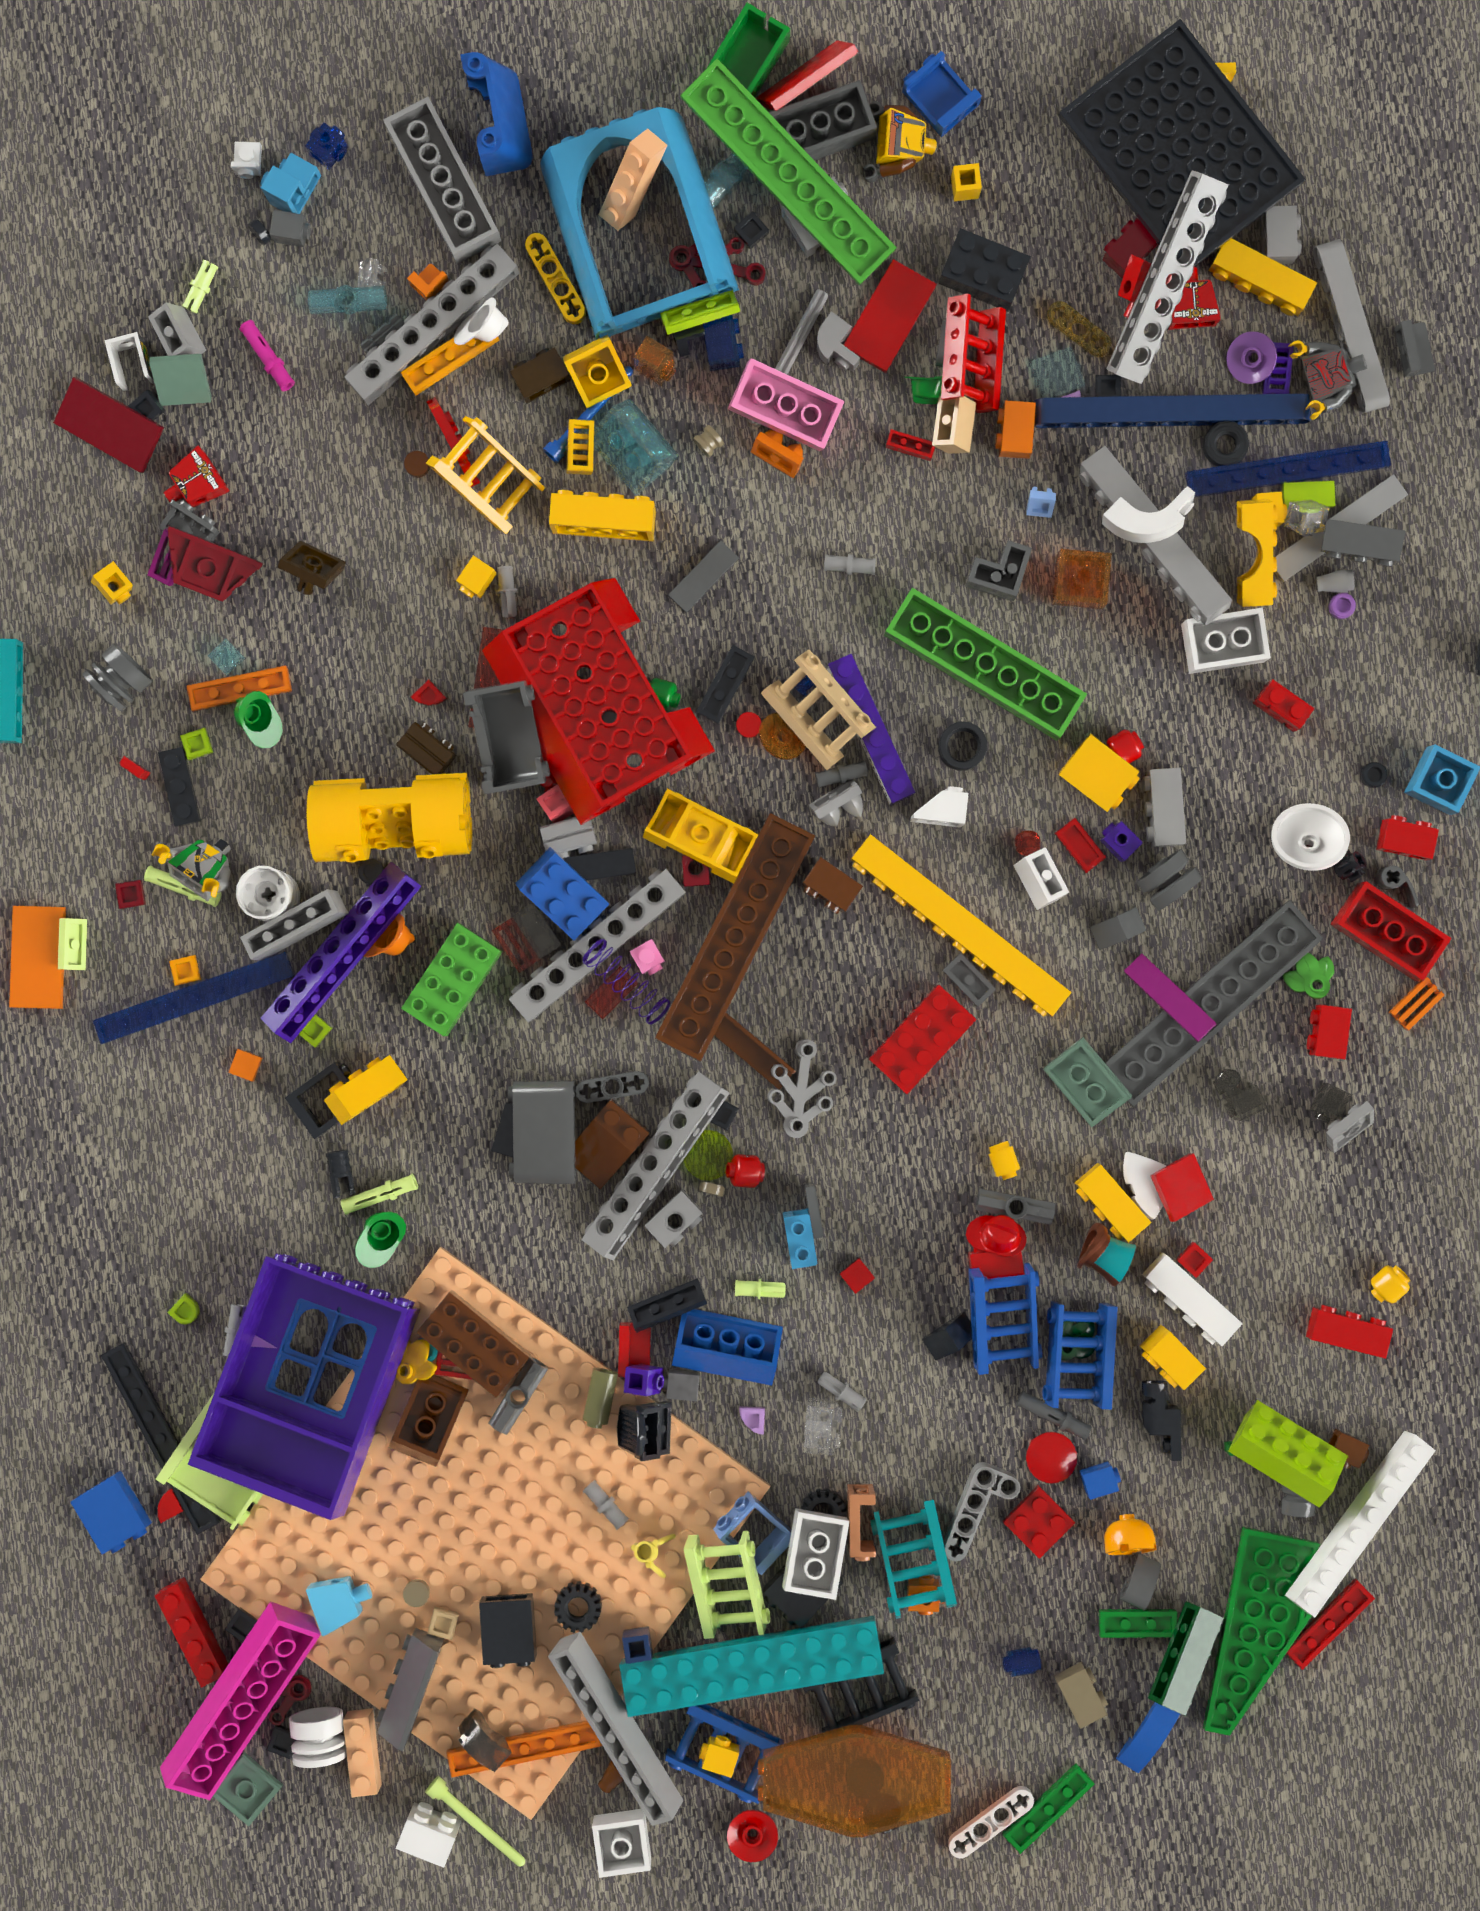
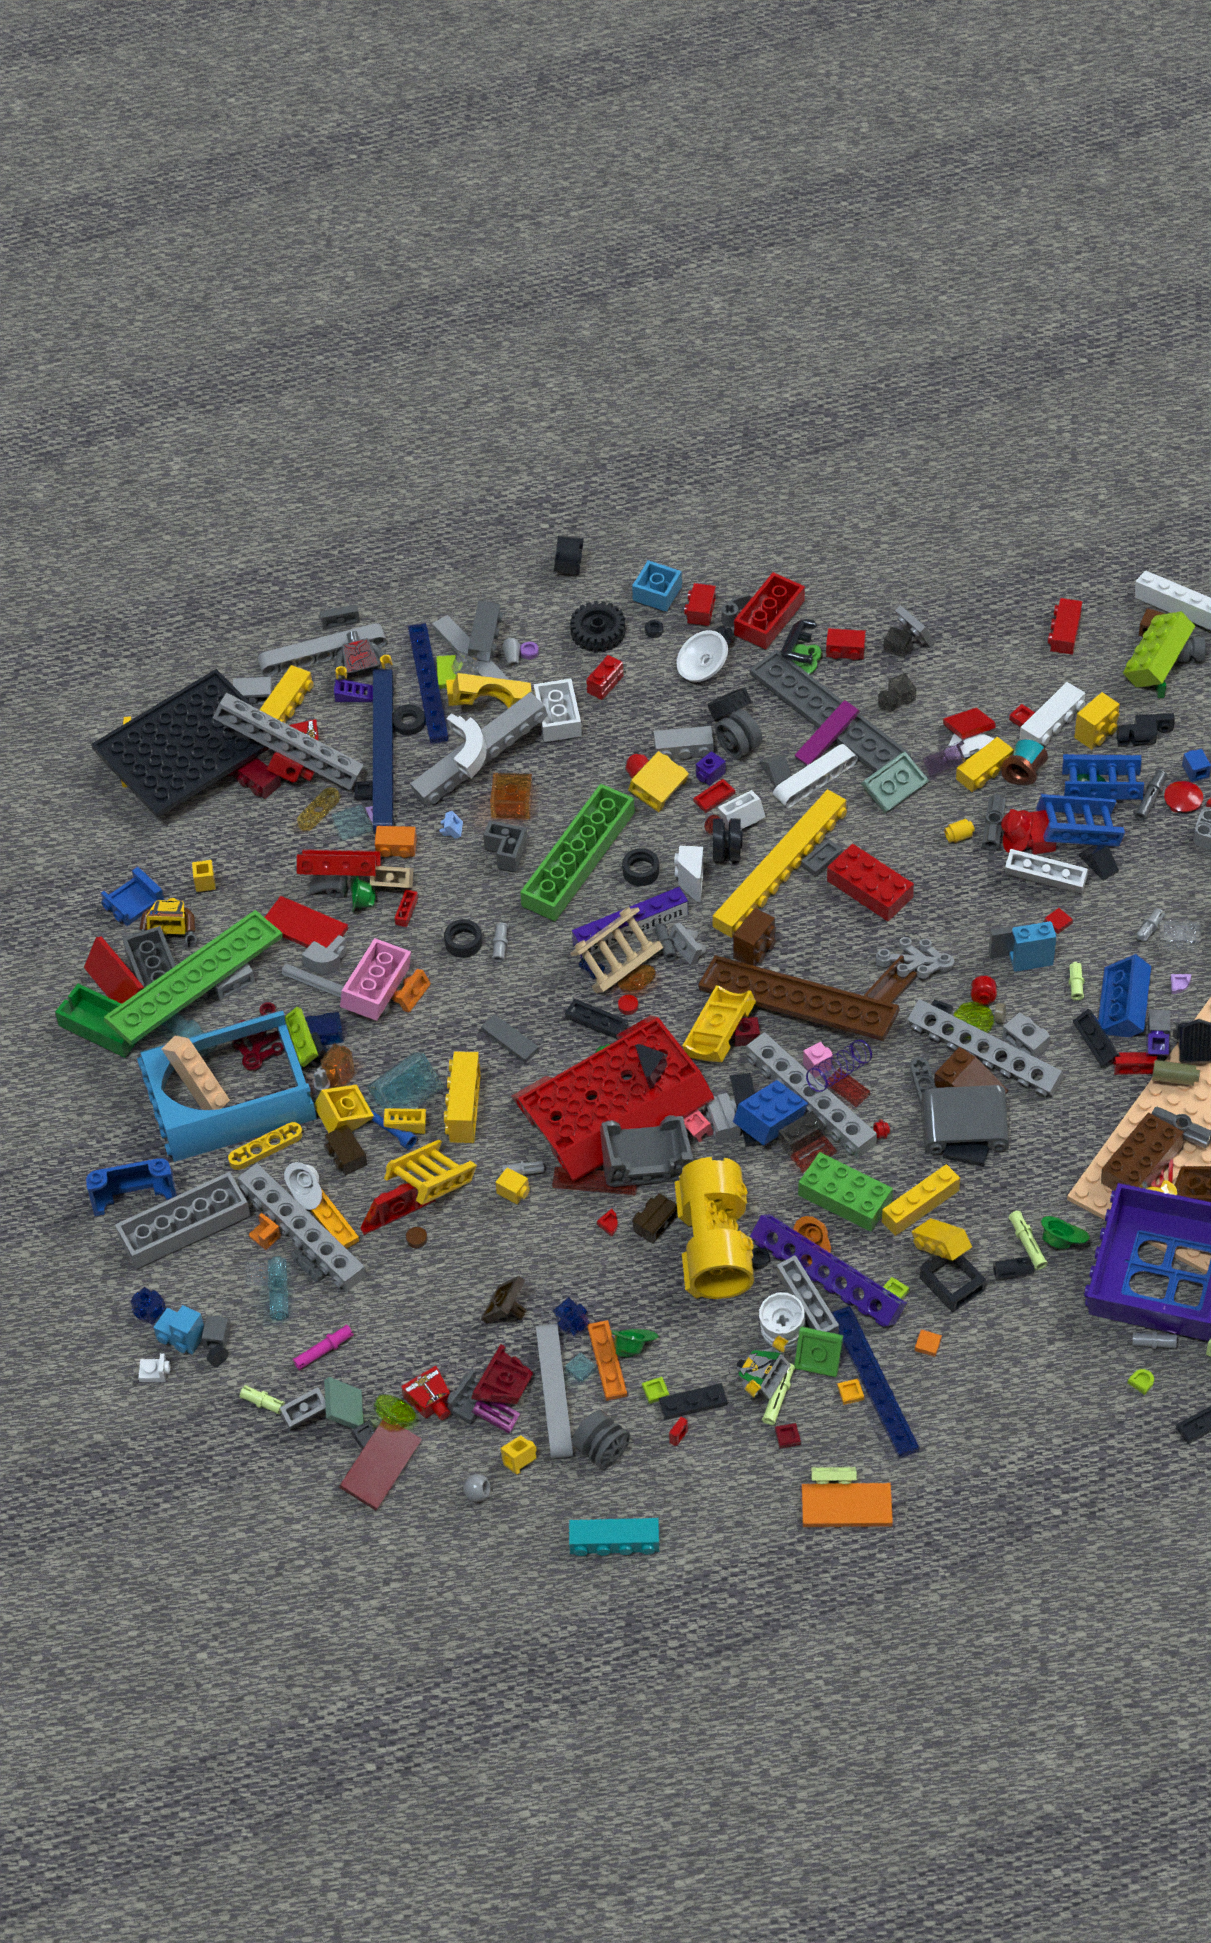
camera: 90 degrees left, 35 degrees down
(69, 535) = (476, 1487): none -> light grey piece
(114, 346) = (330, 1455): white piece -> none
(170, 438) = (394, 1410): none -> clear neon green tile
(196, 625) = (554, 1391): none -> light grey beam
(225, 934) = (818, 1351): none -> bright green plate
(289, 646) = (571, 1316): none -> clear blue brick
(436, 1070) = (920, 1200): none -> yellow brick
(545, 1029) = (881, 1128): none -> red plate
(610, 744) = (652, 1063): none -> black slope
(631, 342) = (321, 1081): none -> light grey axle
(708, 441) = (401, 1035): dark tan wheel -> none
(751, 230) = (232, 1014): black plate -> none
(853, 498) = (466, 950): none -> black tyre
(926, 1267) = (1046, 871): none -> white brick
(984, 269) = (271, 864): black brick -> none
(991, 855) = (727, 839): none -> black wheel
(1104, 978) = (815, 775): none -> white beam
(1121, 1150) = (944, 758): none -> clear purple panel
(1223, 869) = (729, 703): none -> black tyre
(1240, 354) = (349, 696): medium lavender dish -> none
(1347, 963) = (794, 636): none -> black piece
(1390, 1284) = (1028, 604): yellow head -> none
(1392, 686) = (597, 626): none -> black wheel
(1432, 988) = (823, 597): orange tile -> none

